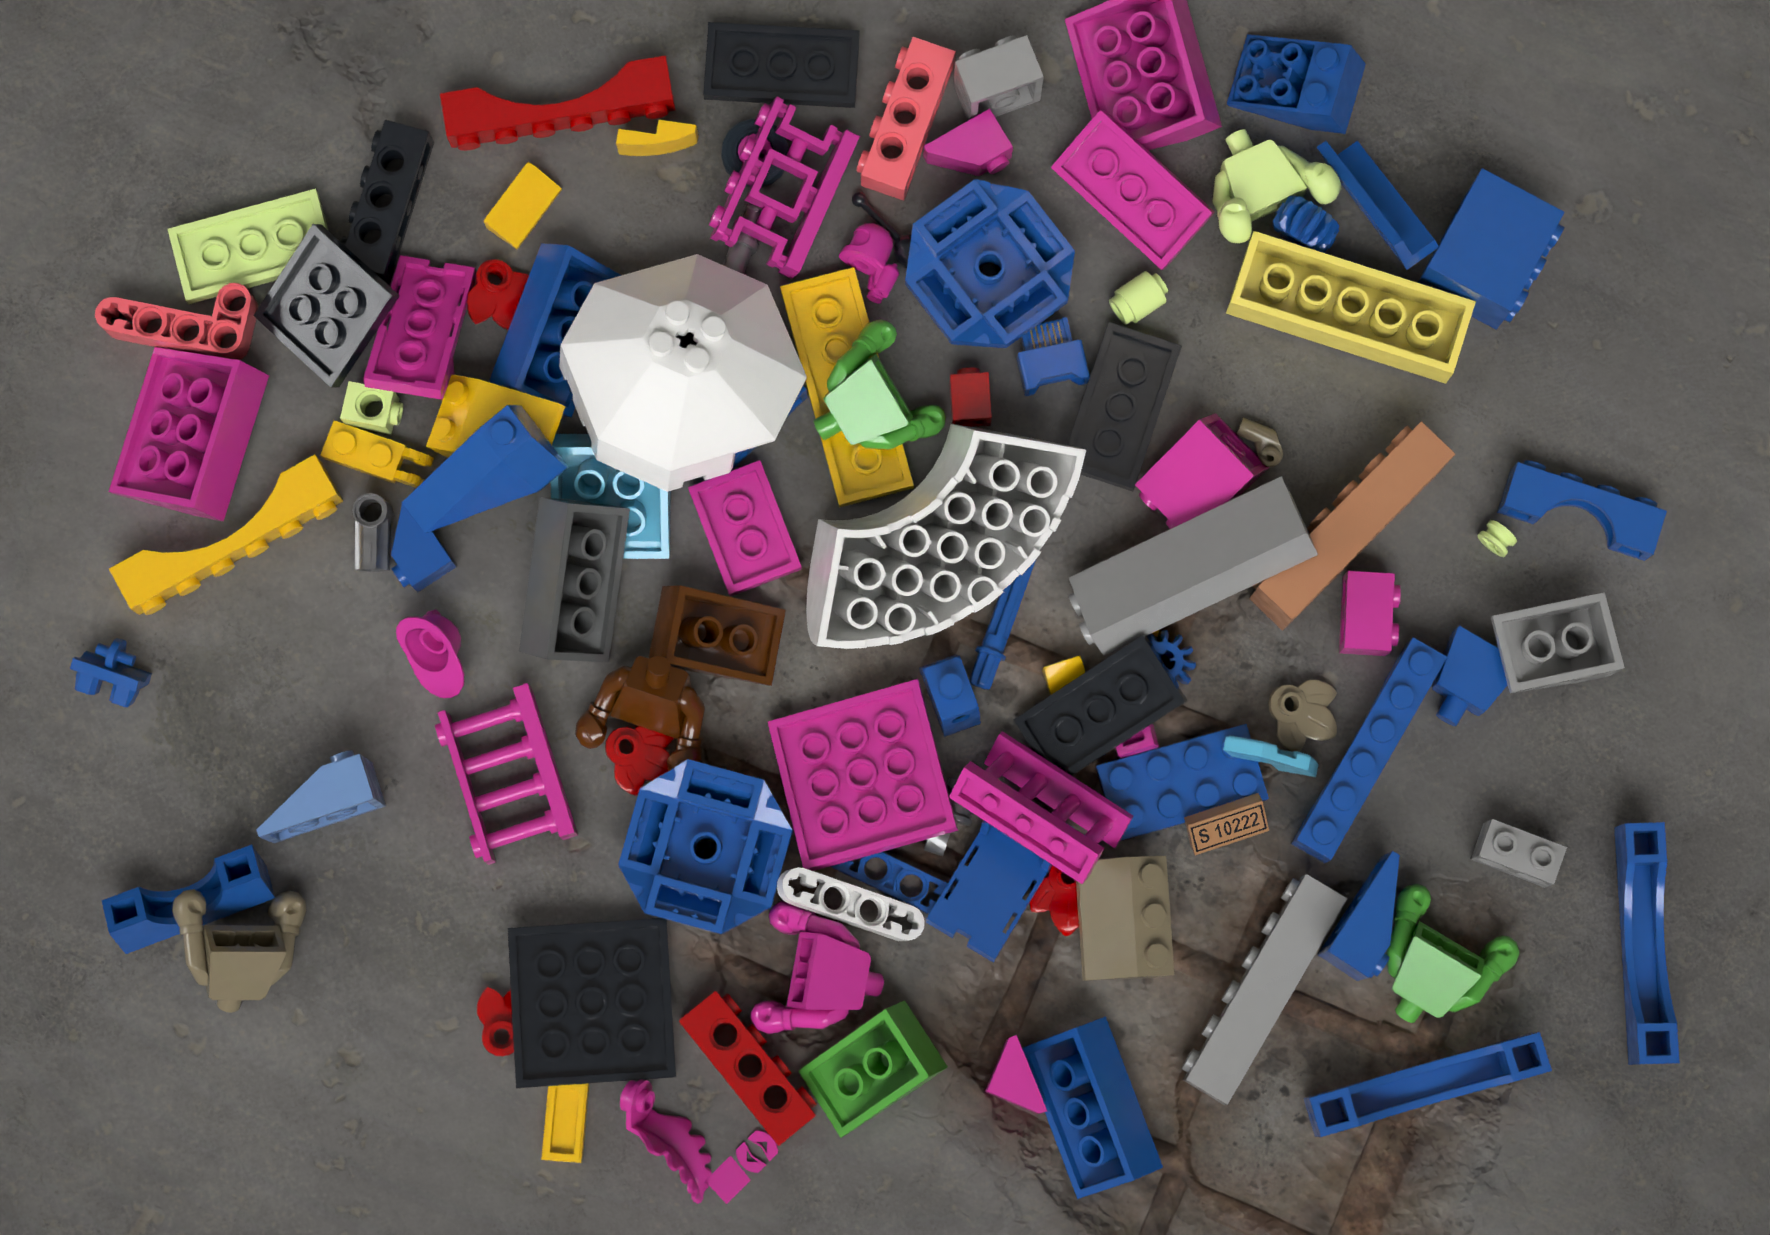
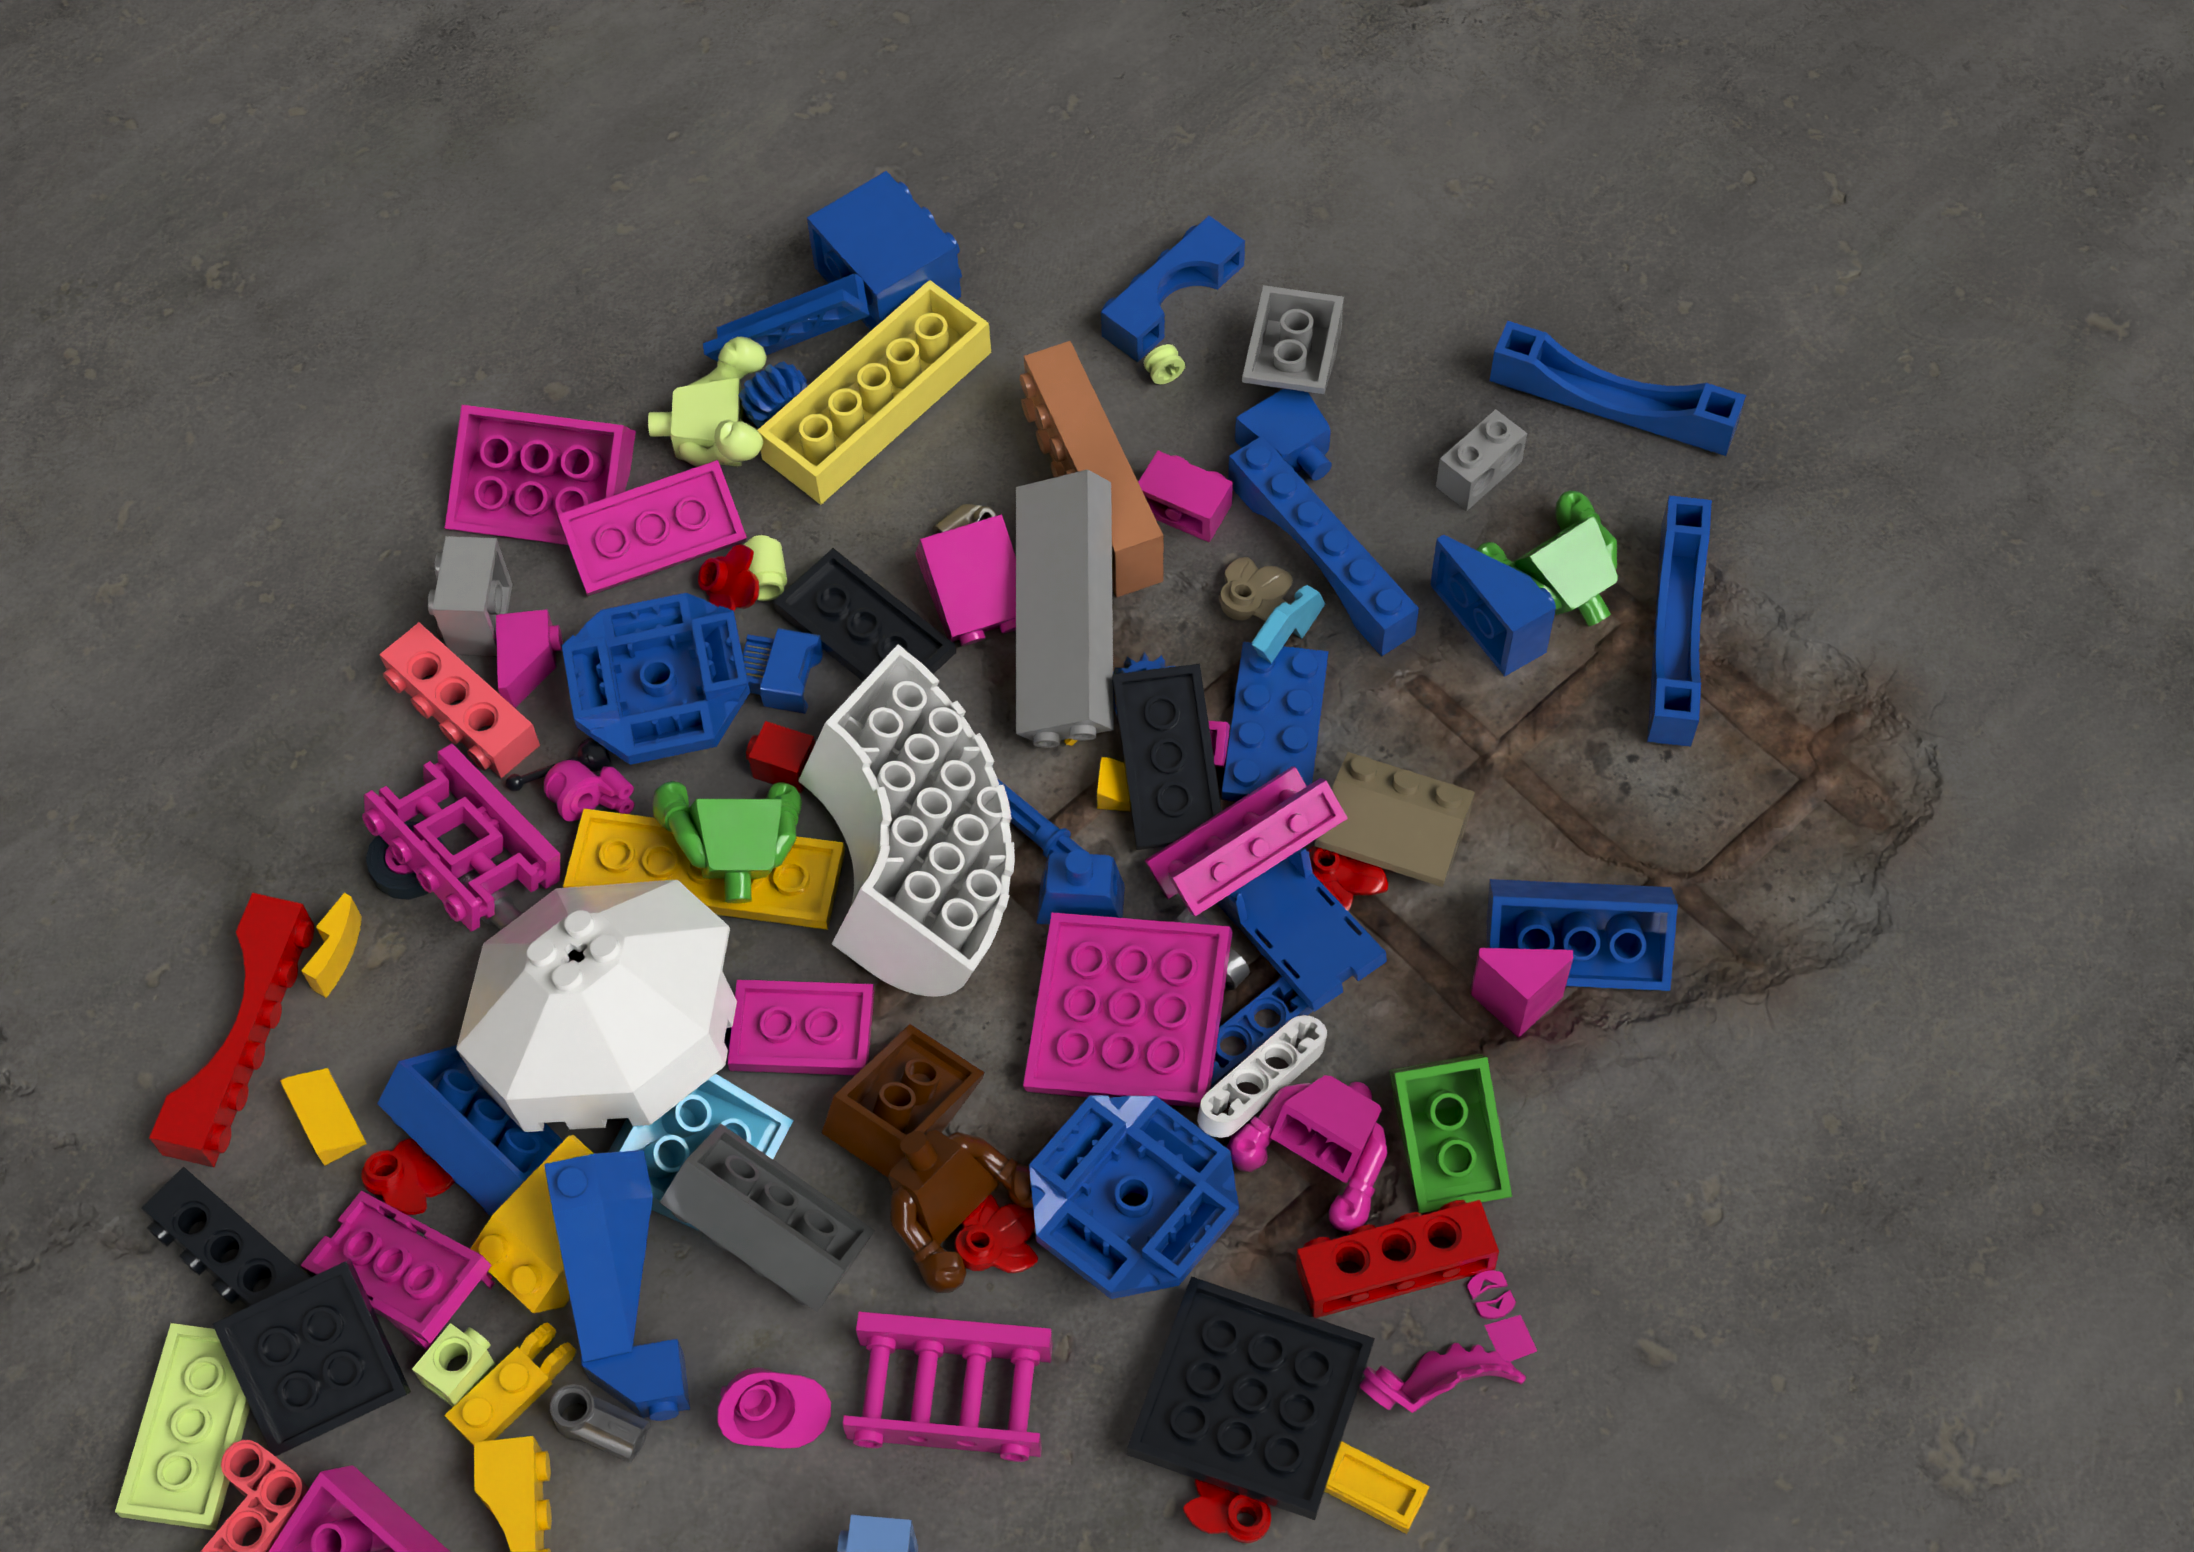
camera: 65 degrees left, 20 degrees down
(783, 62) = (324, 797): black plate -> none
(1107, 280) = (729, 580): none -> red plate
(1226, 824) = (1337, 697): medium nougat tile -> none
(1264, 988) = (1523, 729): light grey brick -> none
(1298, 82) = (629, 355): blue slope -> none

